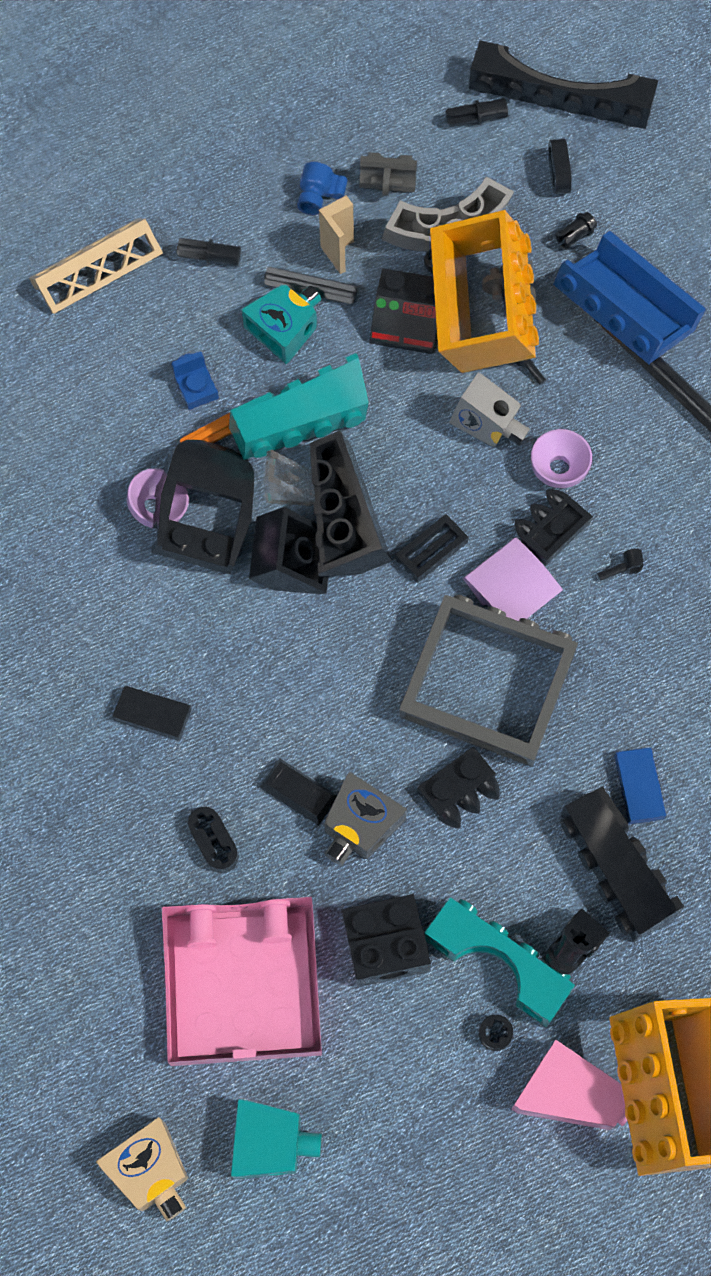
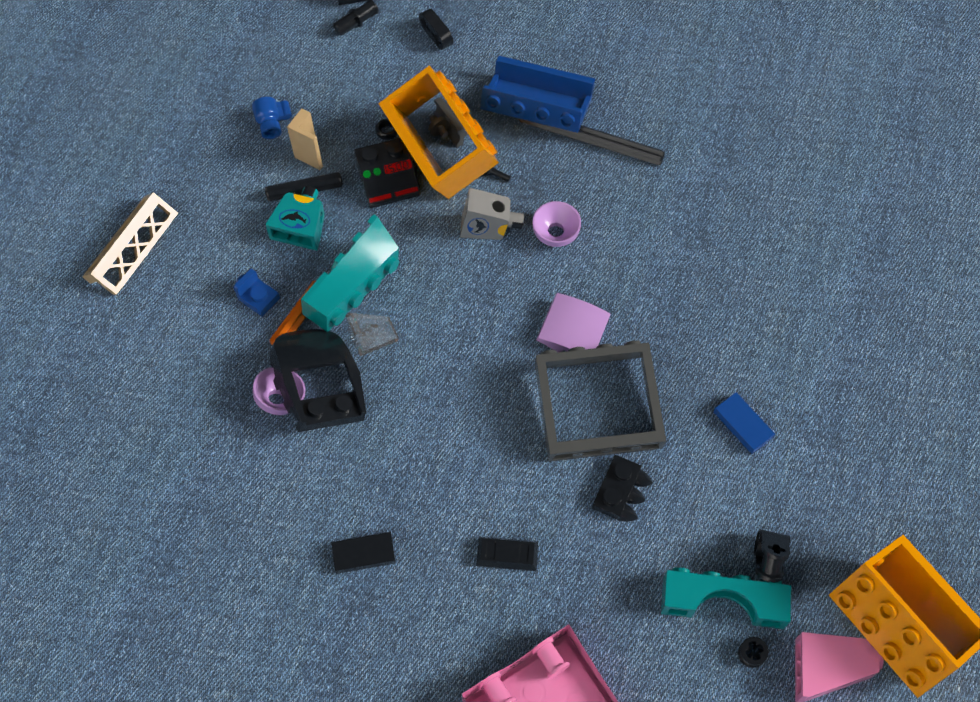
camera: 30 degrees left, 5 degrees down
(206, 844) = (461, 629): black beam -> none
(209, 251) = (213, 196): black axle -> none
(286, 553) = (401, 382): black slope -> none
(347, 525) = (433, 341): black wedge -> none
(360, 820) = (566, 549): dark grey torso -> none
(386, 940) = (647, 637): black brick -> none
(388, 173) = (316, 84): dark grey hips -> none
(411, 224) = (362, 110): light grey brick -> none
(411, 566) = (493, 349): black tile -> none
(554, 526) = (578, 273): black plate -> none
(576, 230) = (475, 61): black pin -> none
(619, 865) = (768, 484): black wedge -> none
(632, 564) = (646, 273): black hand -> none

